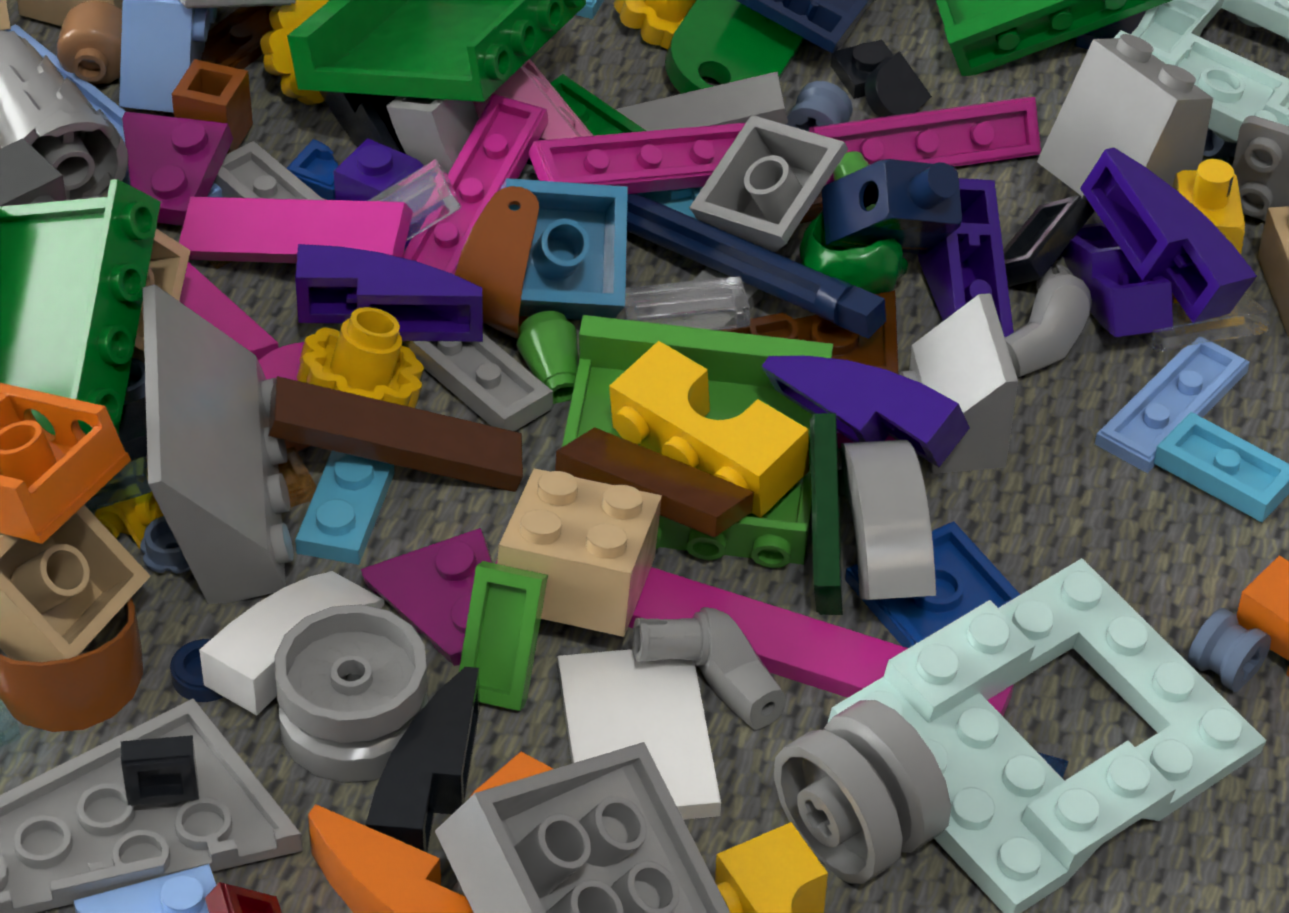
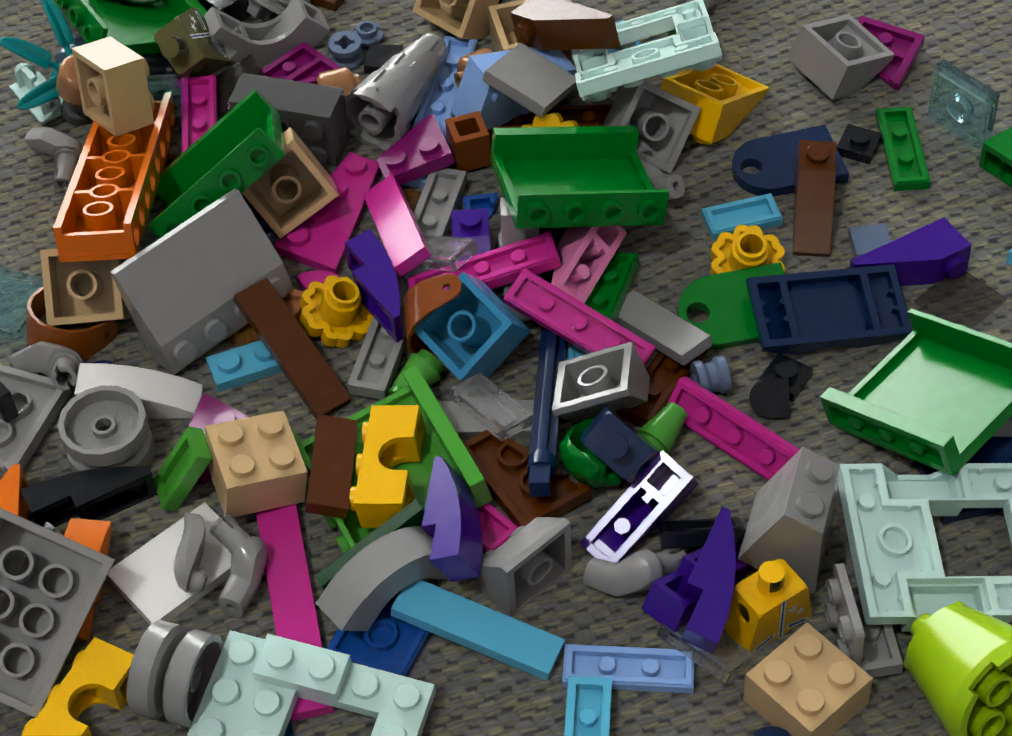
camera: 60 degrees right, 5 degrees up
(140, 694) = (51, 359): none -> light grey arm
(662, 689) = (190, 554): none -> light grey arm
(1022, 488) = (478, 628): none -> medium azure tile

